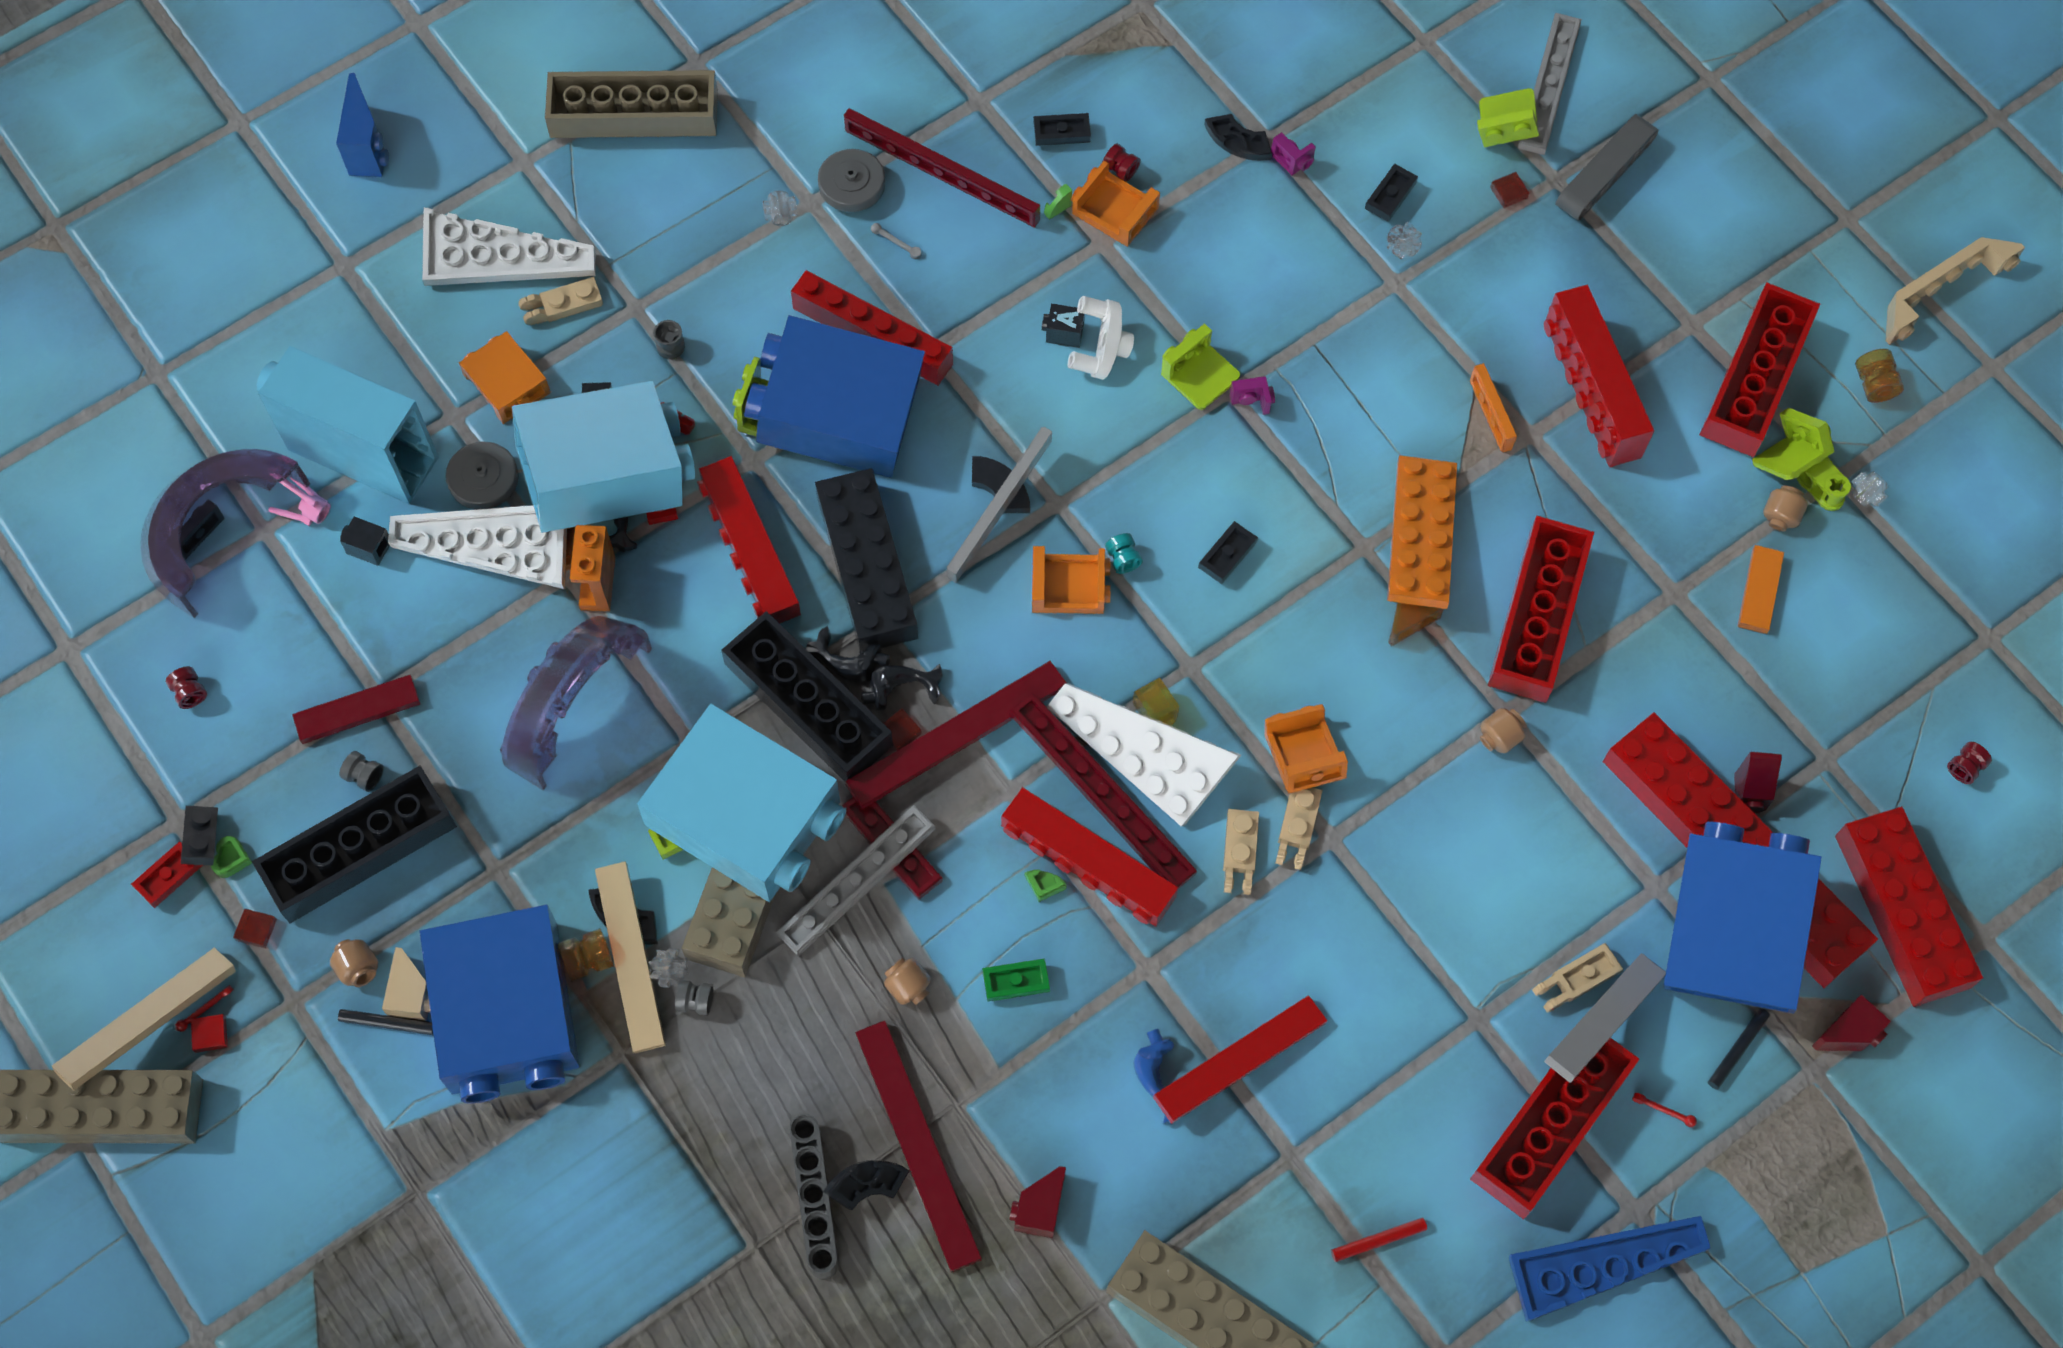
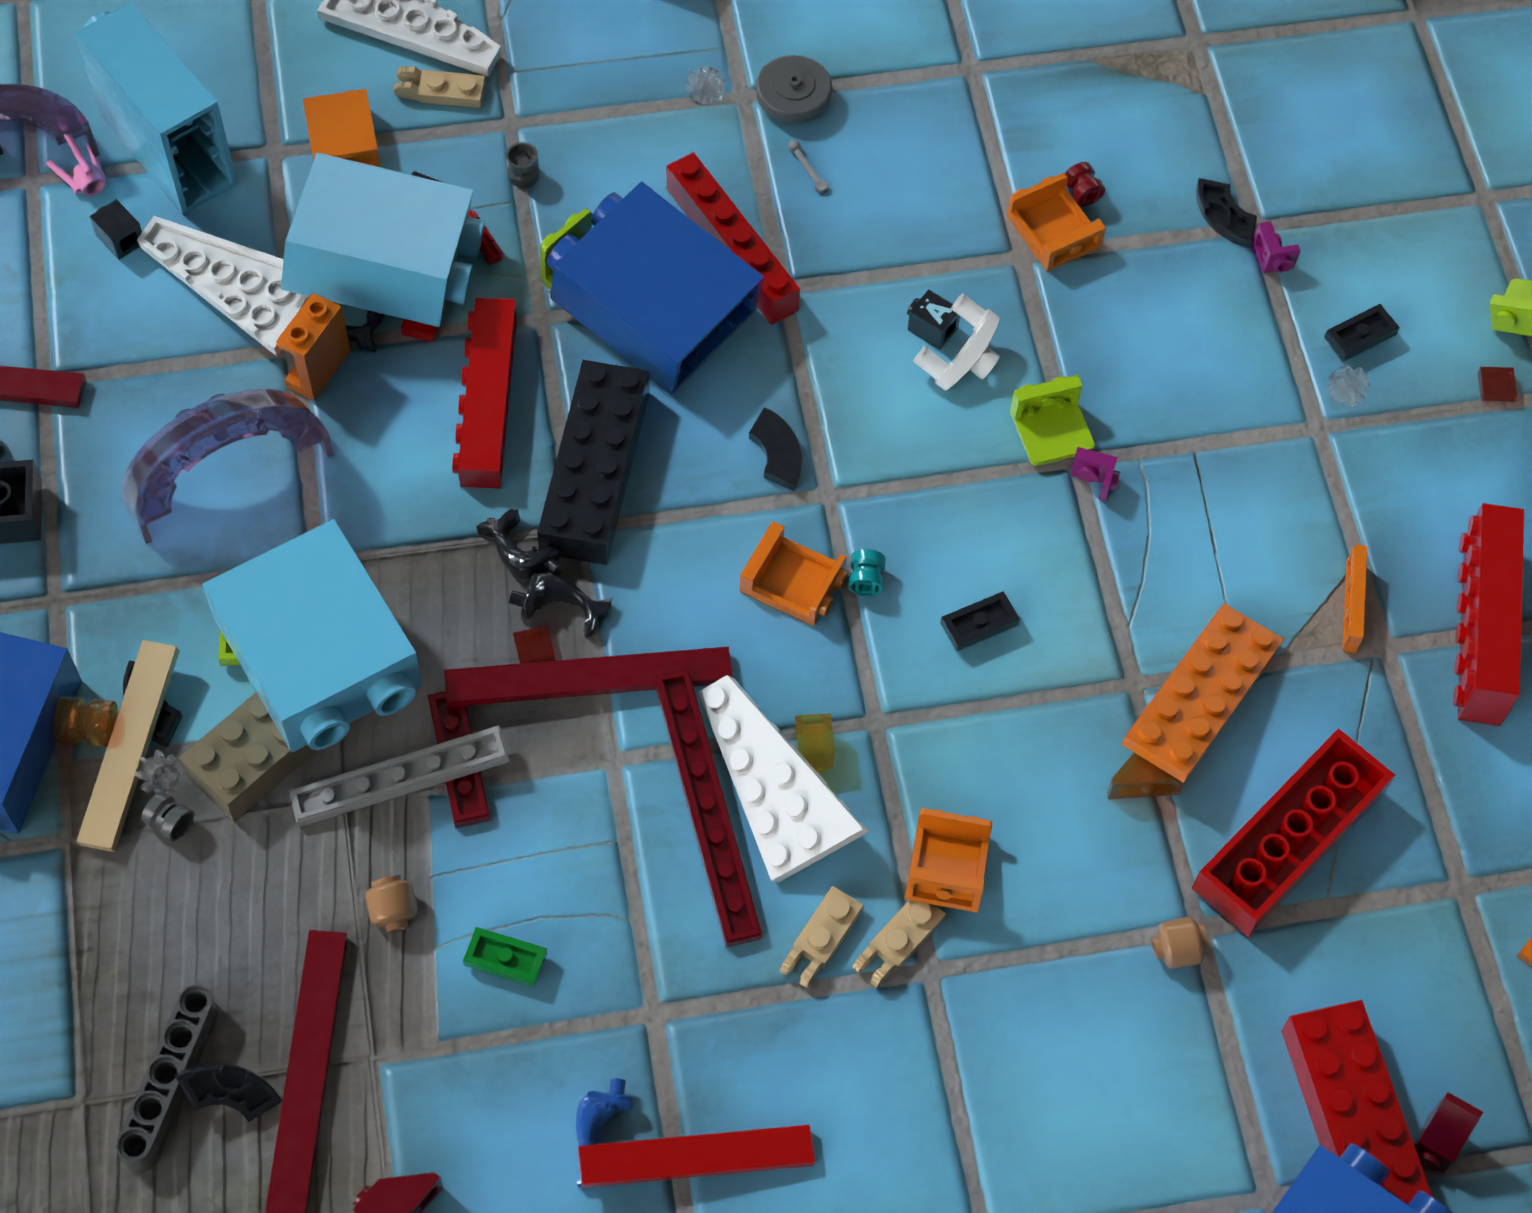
camera: 25 degrees right, 5 degrees down
(482, 475) = (261, 215): dark grey wheel -> none
(807, 697) = (454, 569): black brick -> none
(942, 167) = (894, 115): dark red tile -> none
(999, 504) = (761, 464): light grey tile -> none
(1044, 884) = (593, 873): bright green tile -> none
(1060, 203) = (996, 198): bright green tile -> none
(1062, 129) = (1040, 127): black plate -> none
(1088, 857) = (654, 867): red brick -> none

